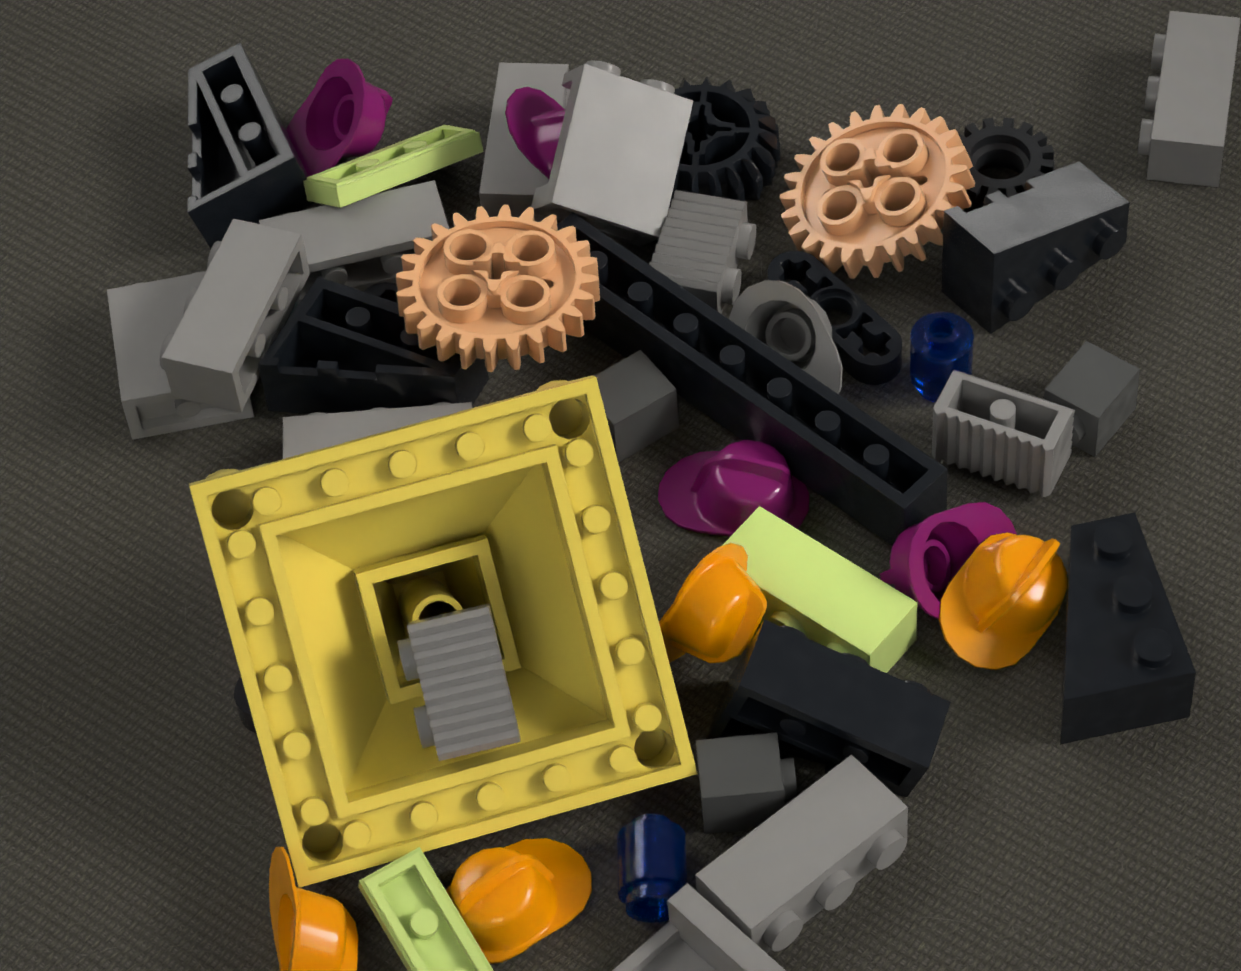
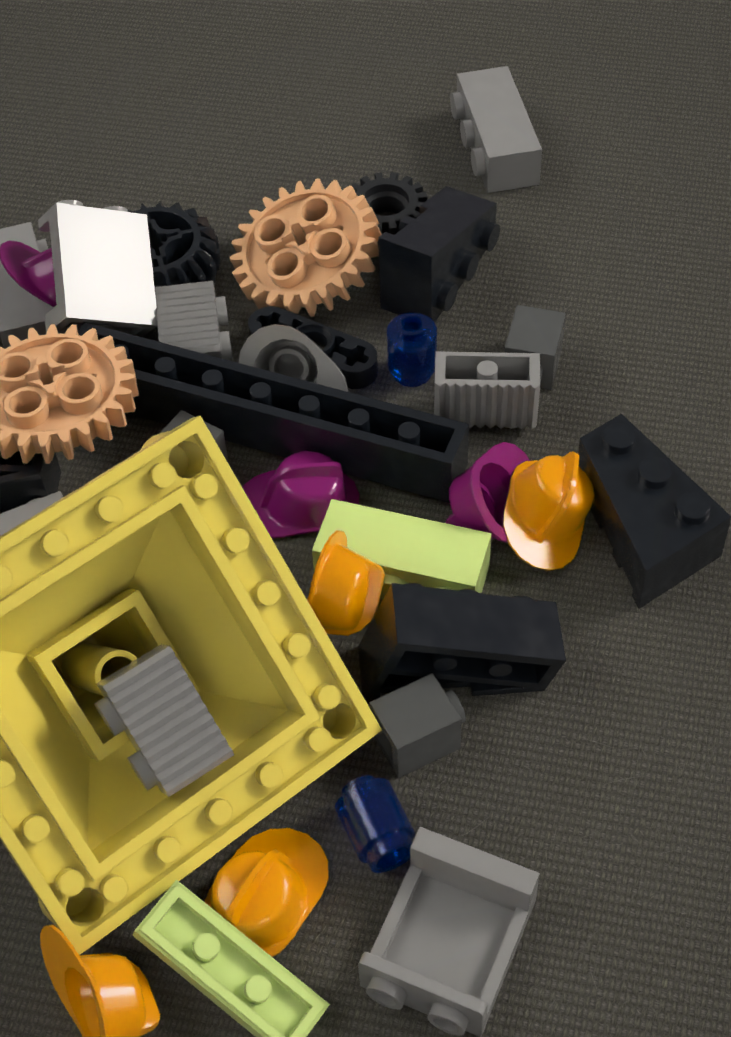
camera: 25 degrees left, 0 degrees up
(807, 855) = (500, 766): light grey brick -> none

